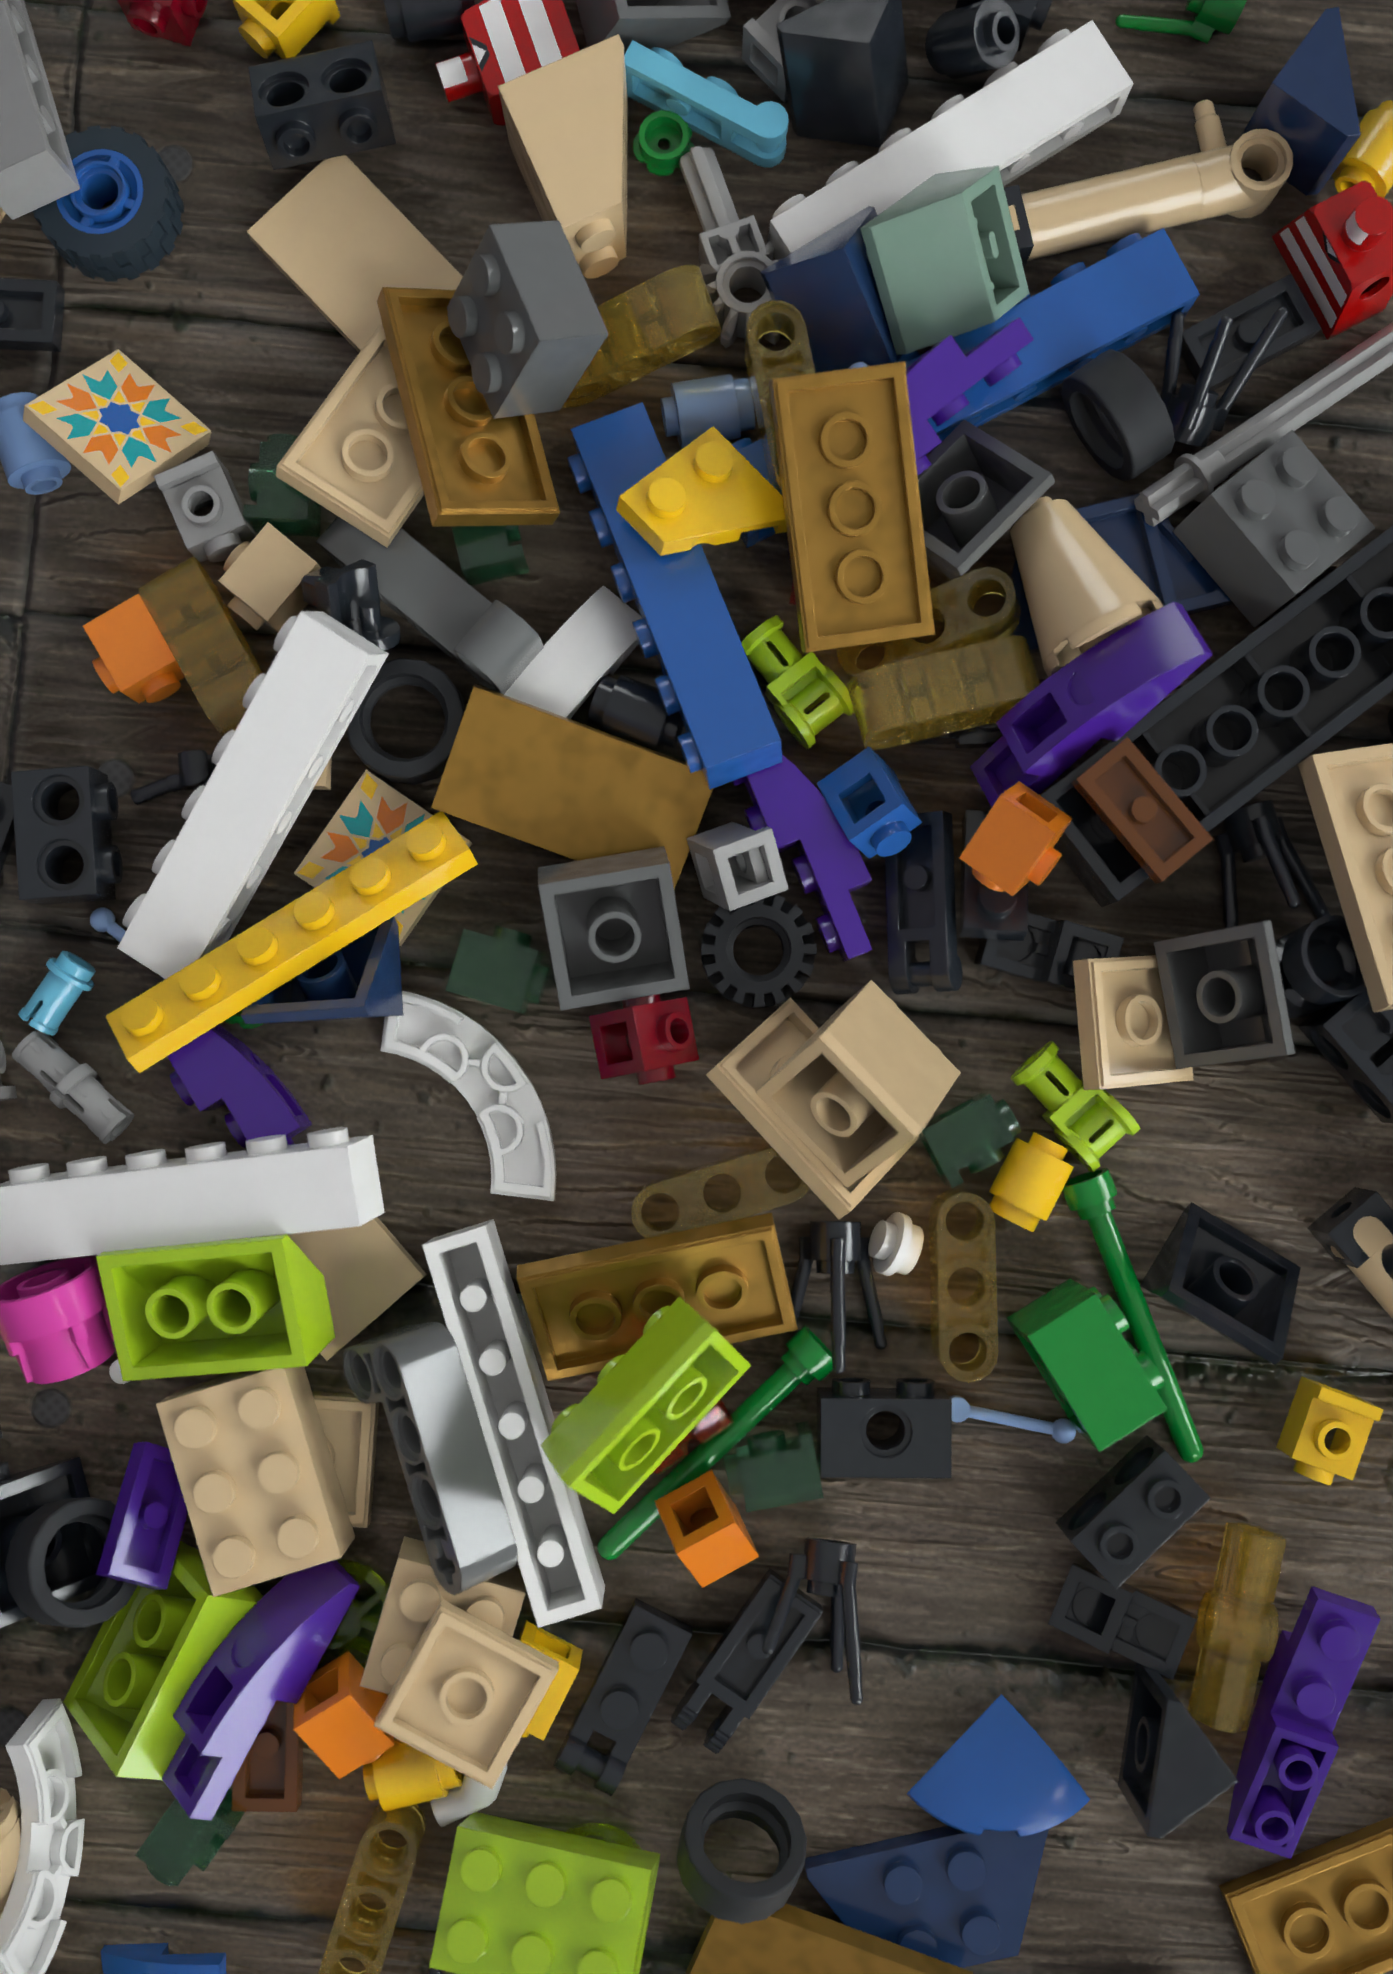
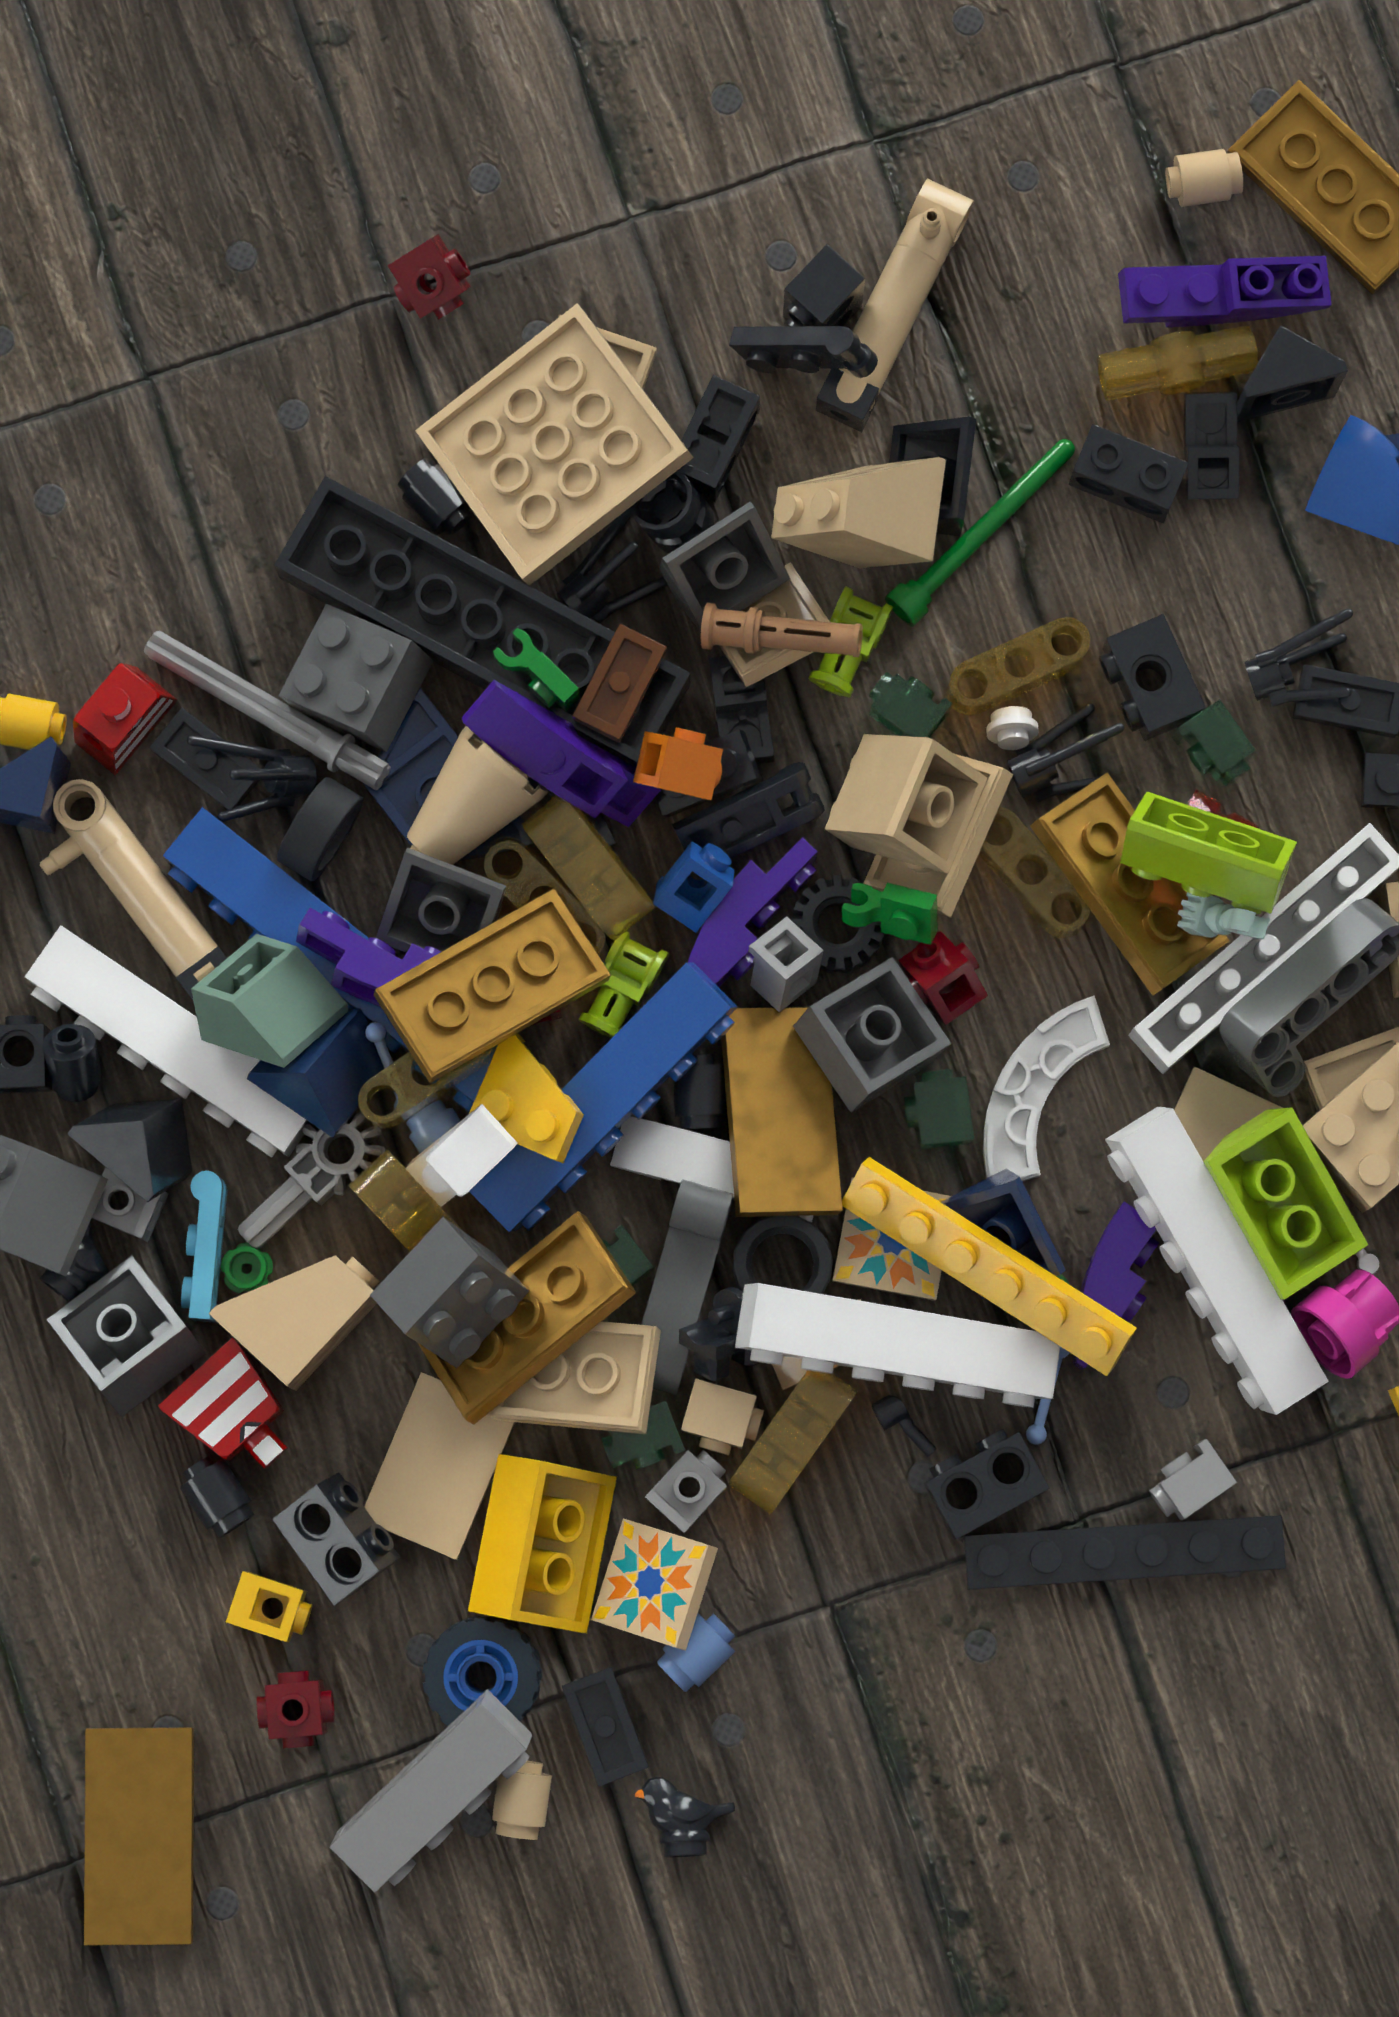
camera: 110 degrees left, 5 degrees down
(58, 992) = (1105, 1439): medium azure pin -> none
(73, 1086) = (1171, 1395): light grey pin -> none
(133, 653) = (822, 1492): orange brick -> none
(218, 326) = (542, 1543): none -> yellow slope
(572, 1377) = (1212, 917): none -> light aqua piece
(673, 402) = (461, 1156): none -> white slope
(706, 1529) = (1281, 774): orange brick -> none
(738, 1019) = (900, 909): none -> green plate
(803, 1362) = (1129, 758): green piece -> none
(1030, 1181) = (920, 649): yellow brick -> none
(1061, 1430) = (1094, 547): light blue hinge -> none
(1087, 1362) = (1036, 552): green brick -> none
(1134, 997) = (755, 630): none -> medium nougat pin
(1178, 727) = (548, 682): none -> green plate
(1216, 1184) = (865, 513): none -> tan slope
(1311, 1416) = (993, 371): yellow brick -> none

